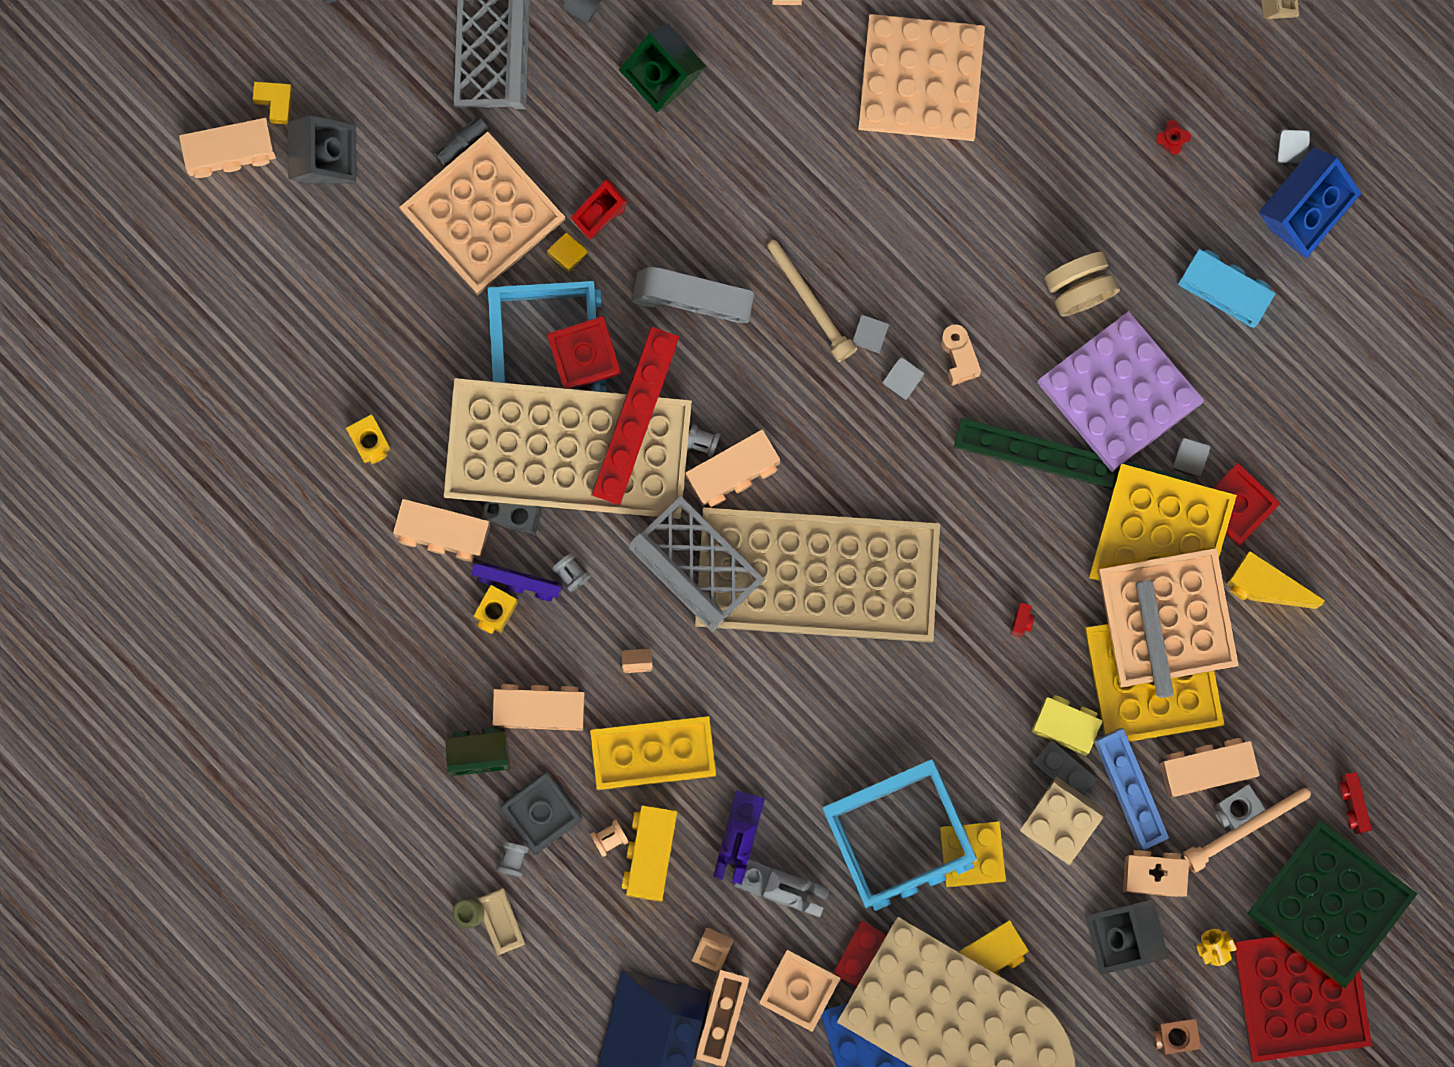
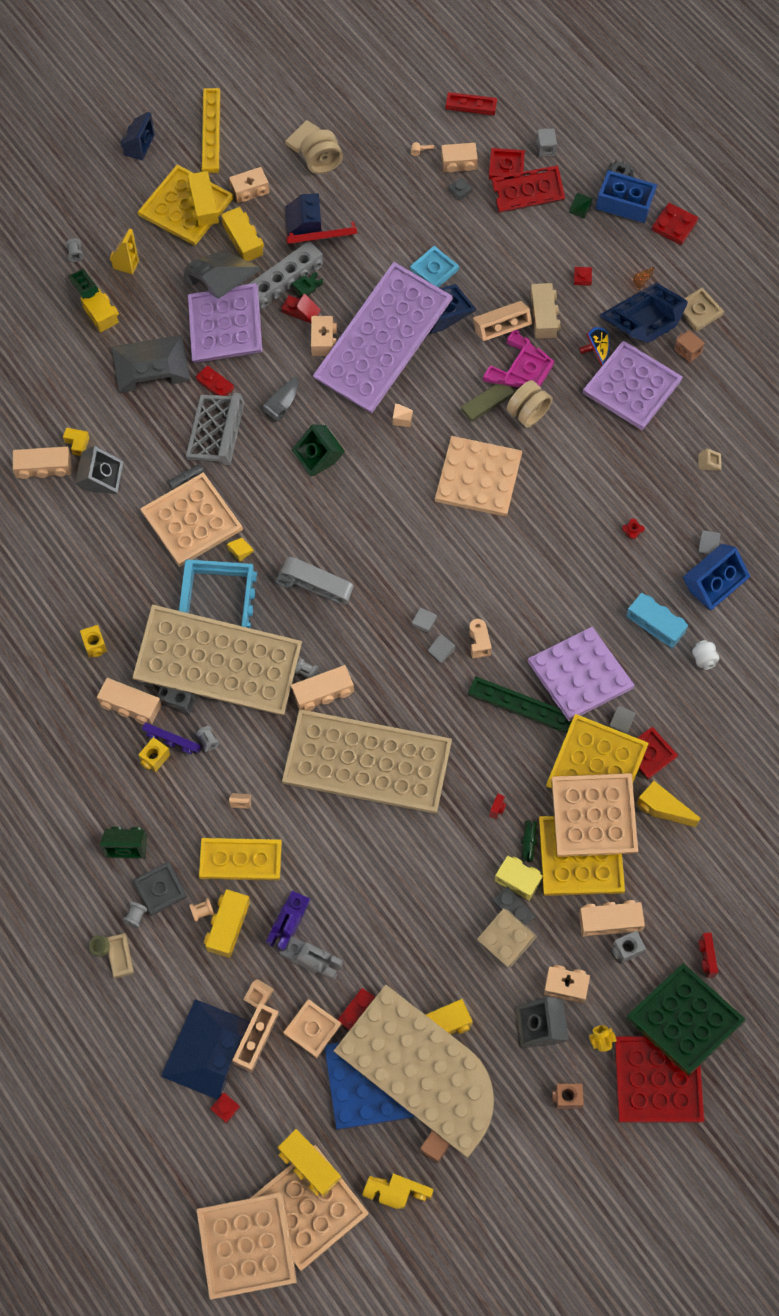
camera: 15 degrees right, 15 degrees down
(538, 708) = (170, 820): light nougat brick -> none
(584, 353) = (238, 603): red plate -> none
(599, 209) = (266, 522): red slope -> none
(635, 415) = (263, 644): red plate -> none
(678, 581) = (275, 751): light grey fence -> none
(840, 344) = (404, 625): tan piece -> none
(882, 789) = (385, 902): medium azure window -> none
(988, 849) = (444, 954): yellow plate -> none
(1074, 666) = (528, 841): none -> dark green pin
(1081, 284) = (563, 603): tan wheel -> none
(1131, 789) = (556, 924): medium blue plate -> none
(1154, 638) = (583, 825): light grey axle -> none
(1199, 856) = (598, 976): light nougat piece -> none
(1306, 335) = (705, 654): none -> white piece

